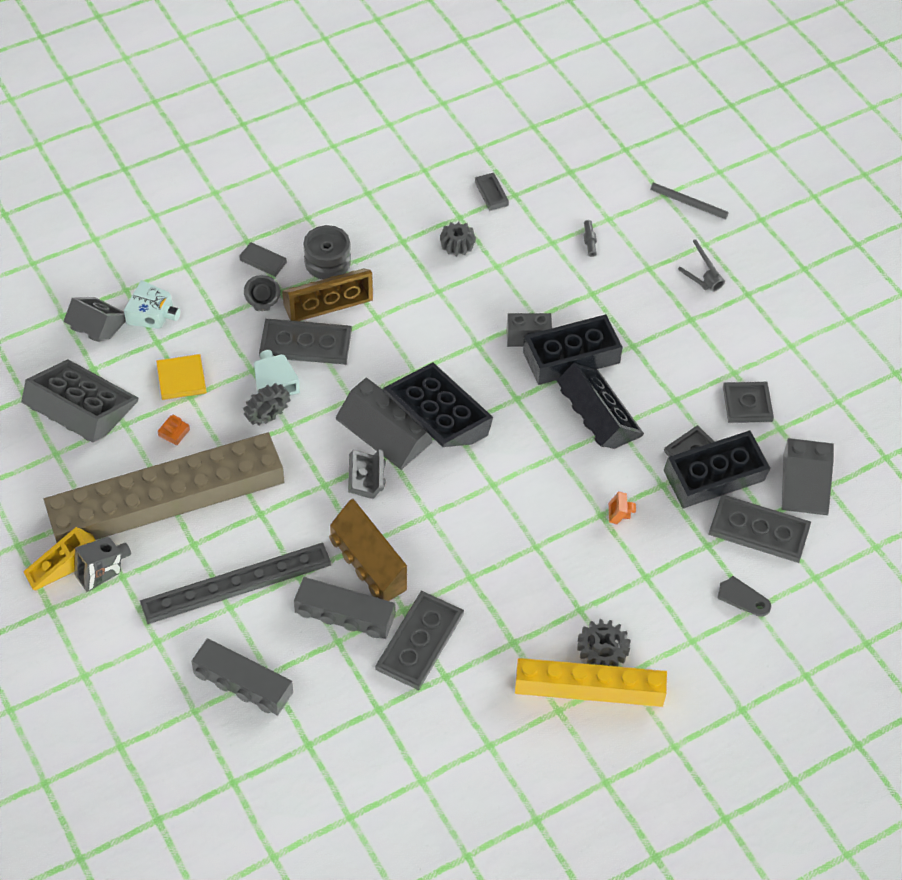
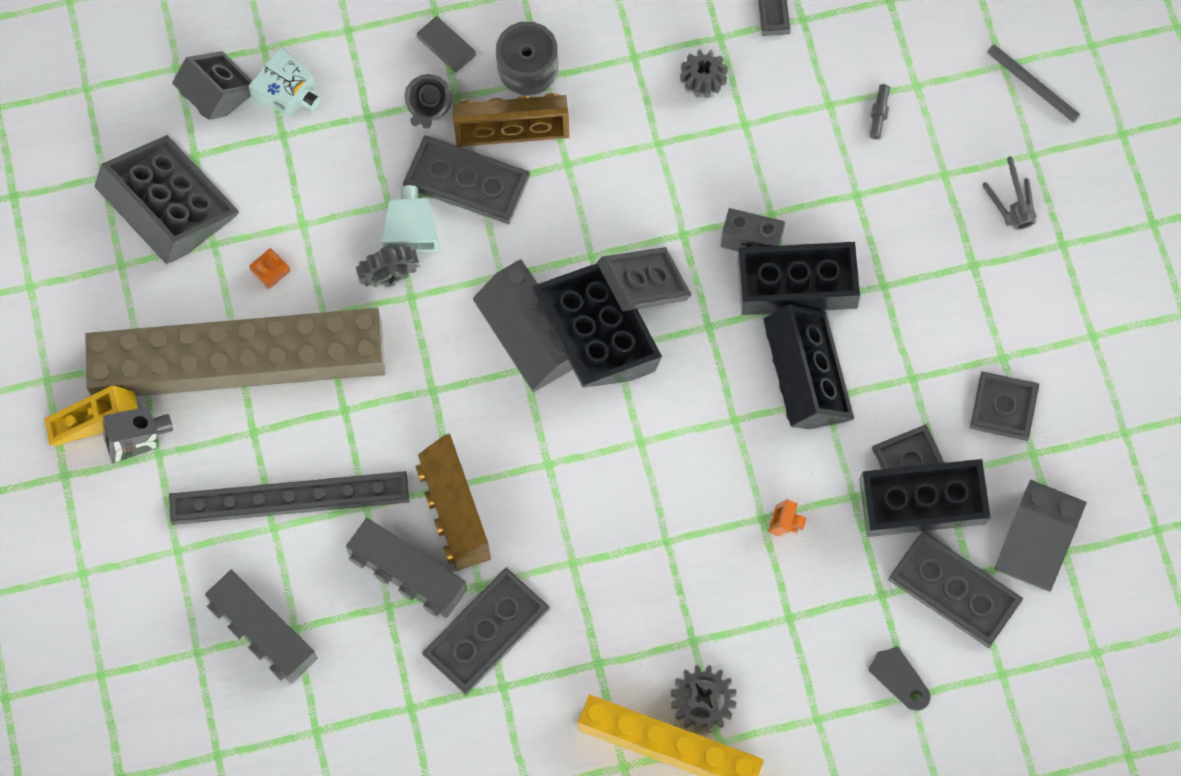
camera: 20 degrees right, 15 degrees up
(181, 377) = (298, 194): yellow tile -> none
(366, 473) = (485, 390): dark grey bracket -> none
(461, 371) = (644, 278): none -> dark grey tile

